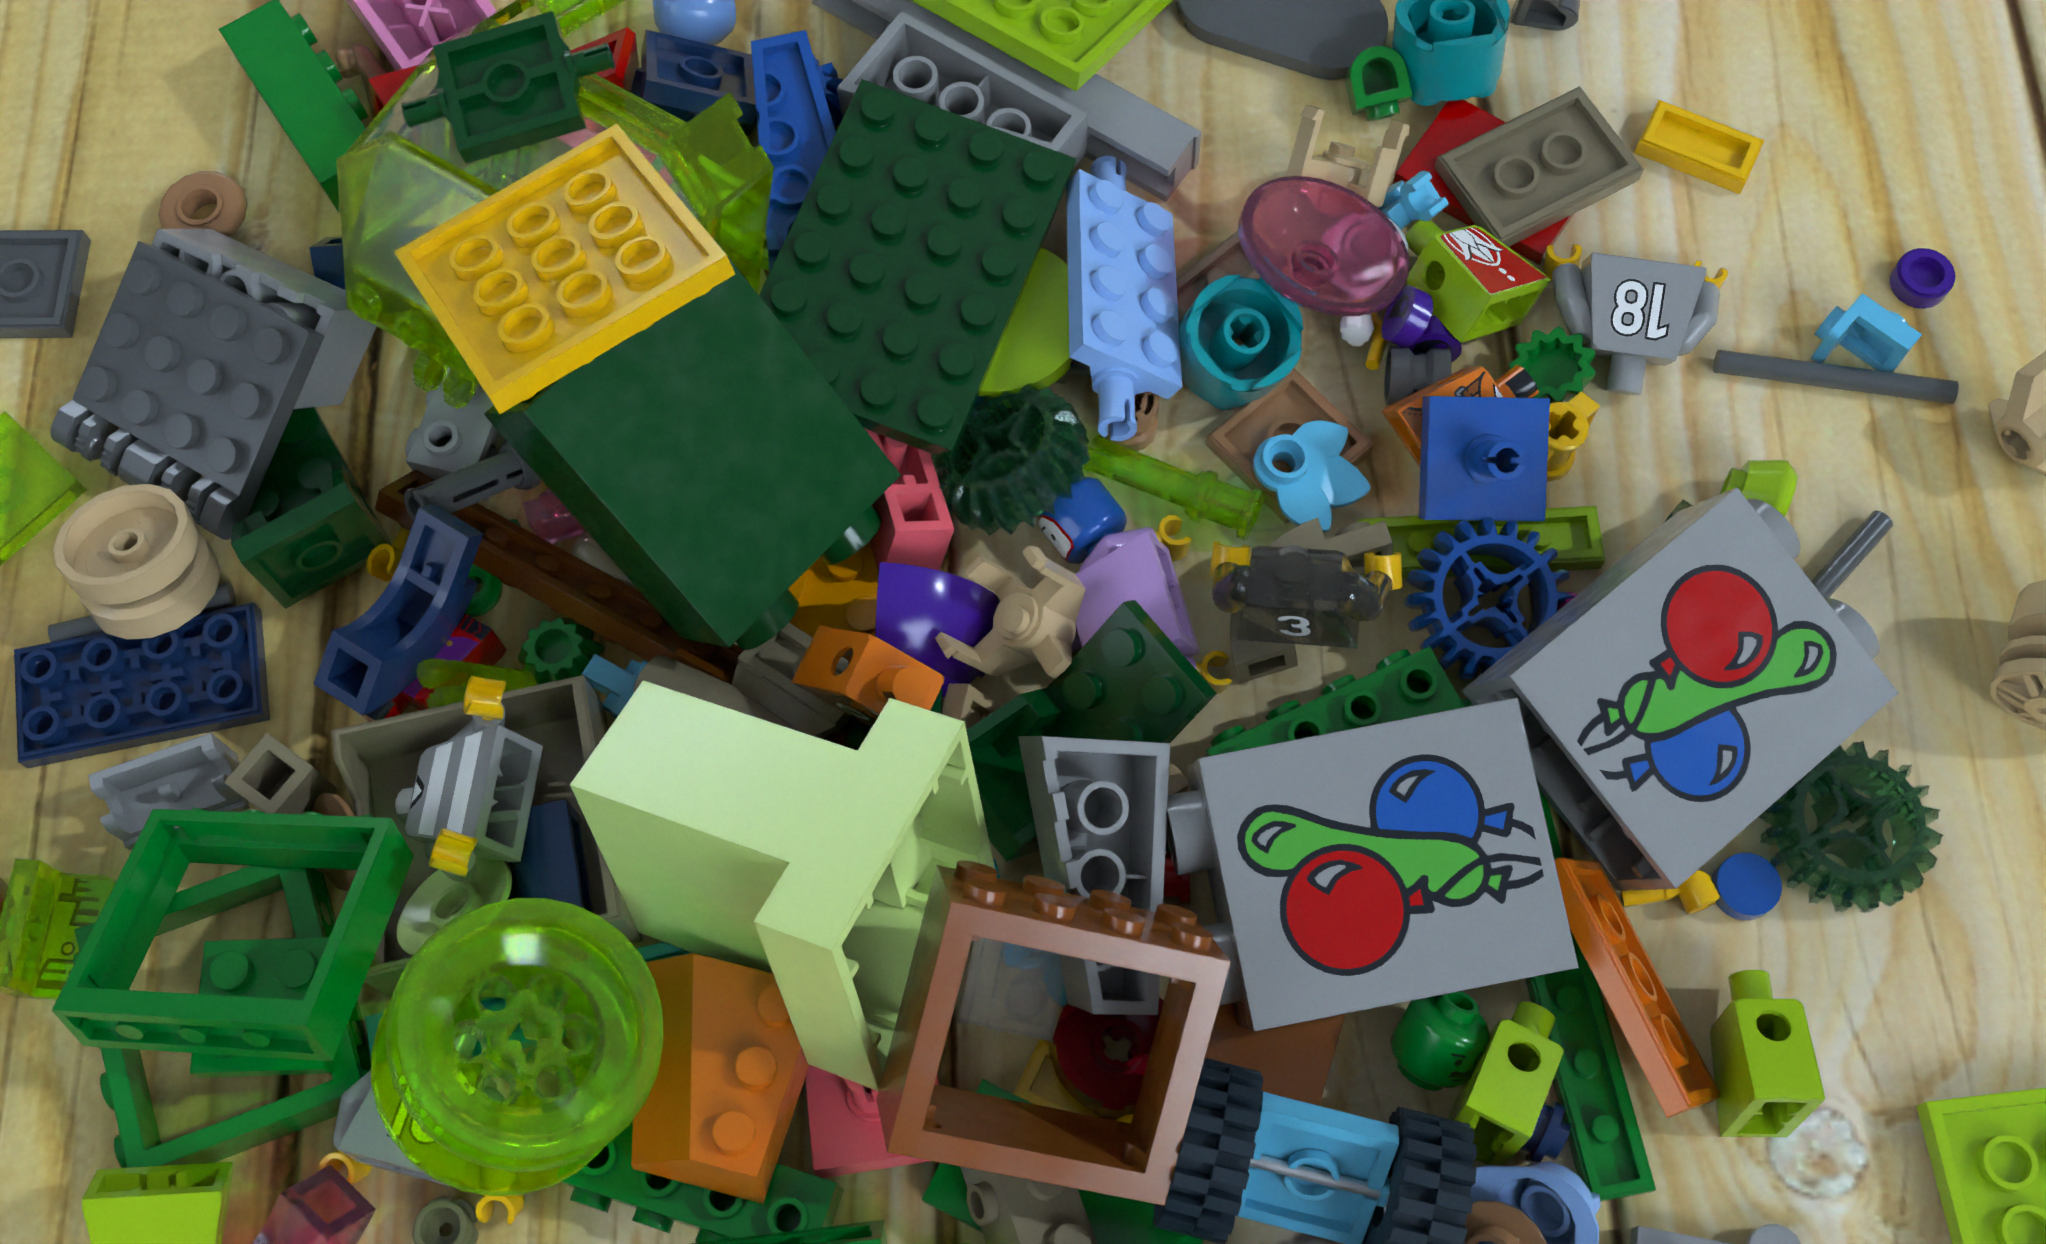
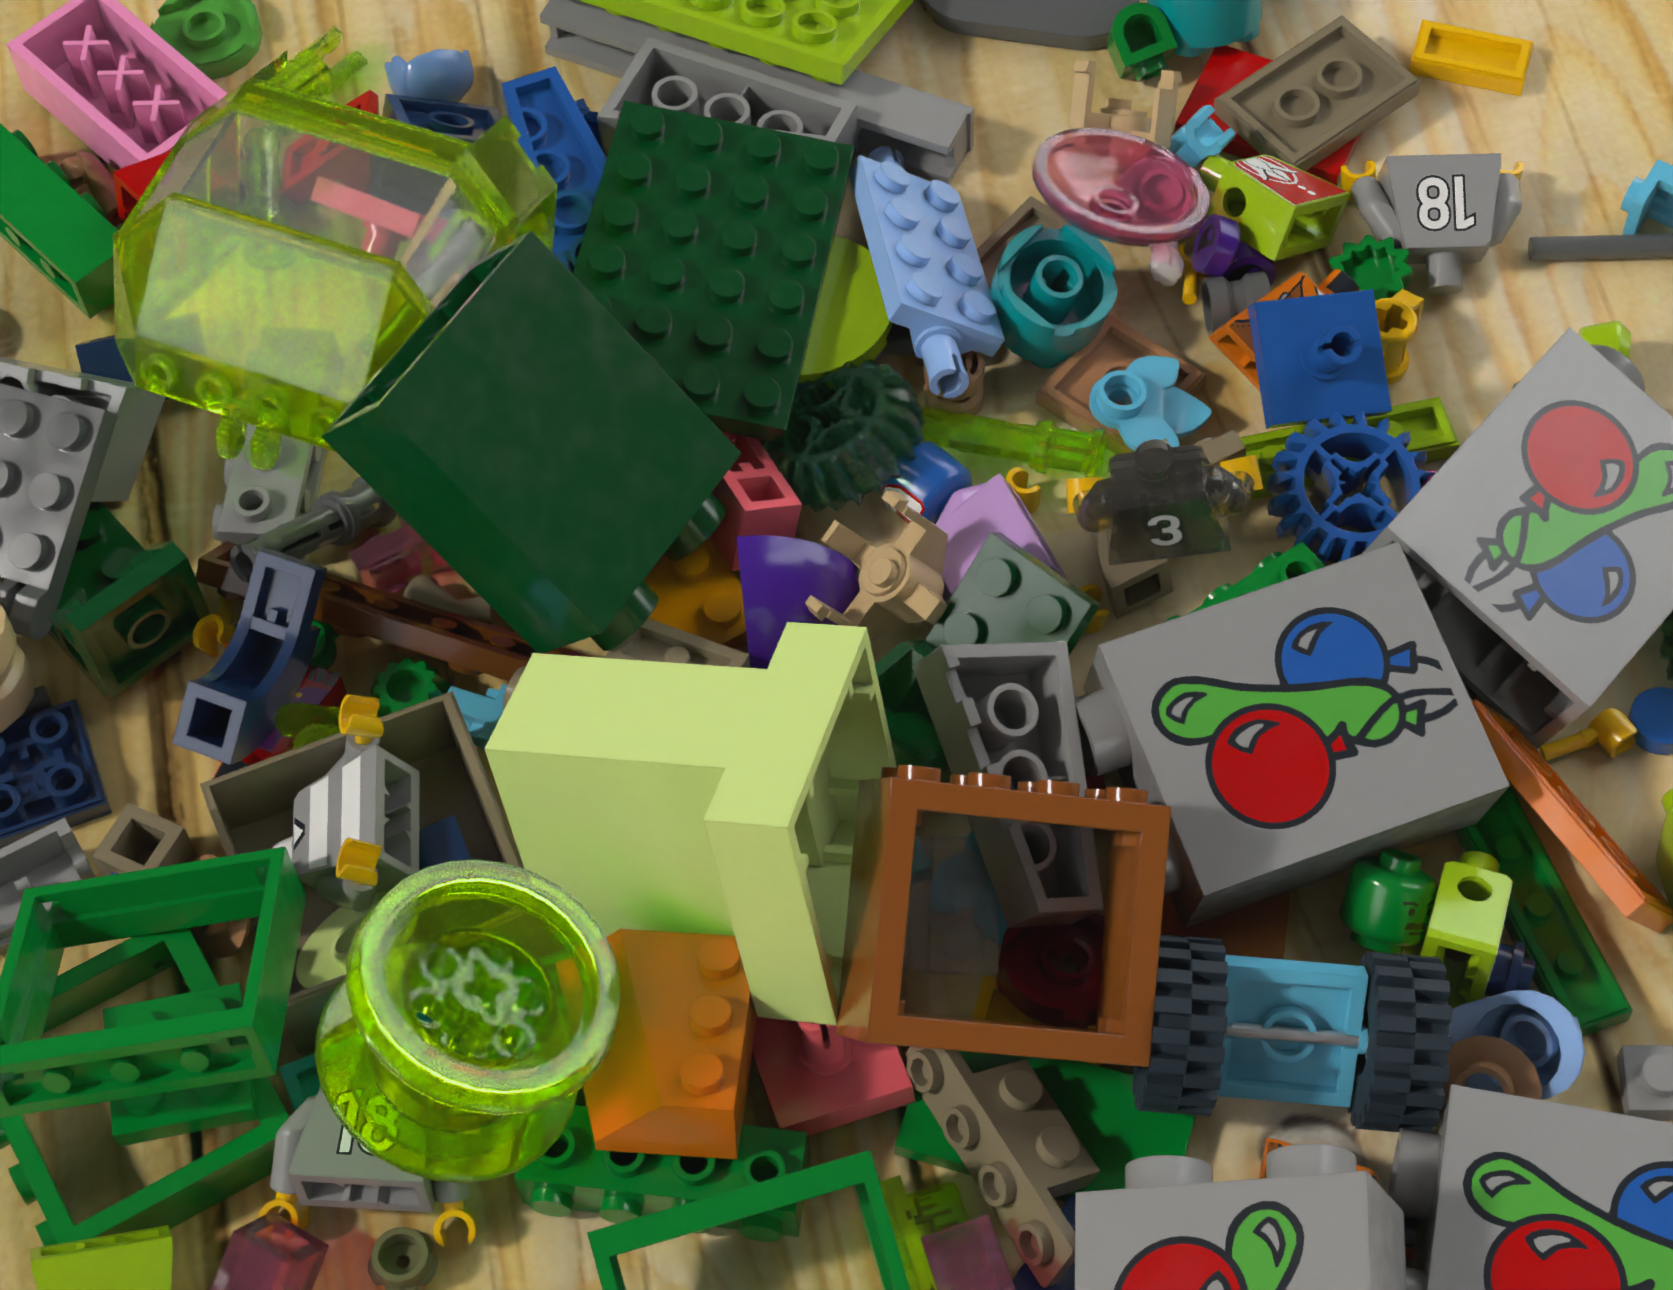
camera: 10 degrees left, 10 degrees down
(508, 87) = (290, 131): dark green plate -> none
(562, 266) = (385, 275): yellow plate -> none
(872, 677) = (747, 628): orange torso -> none

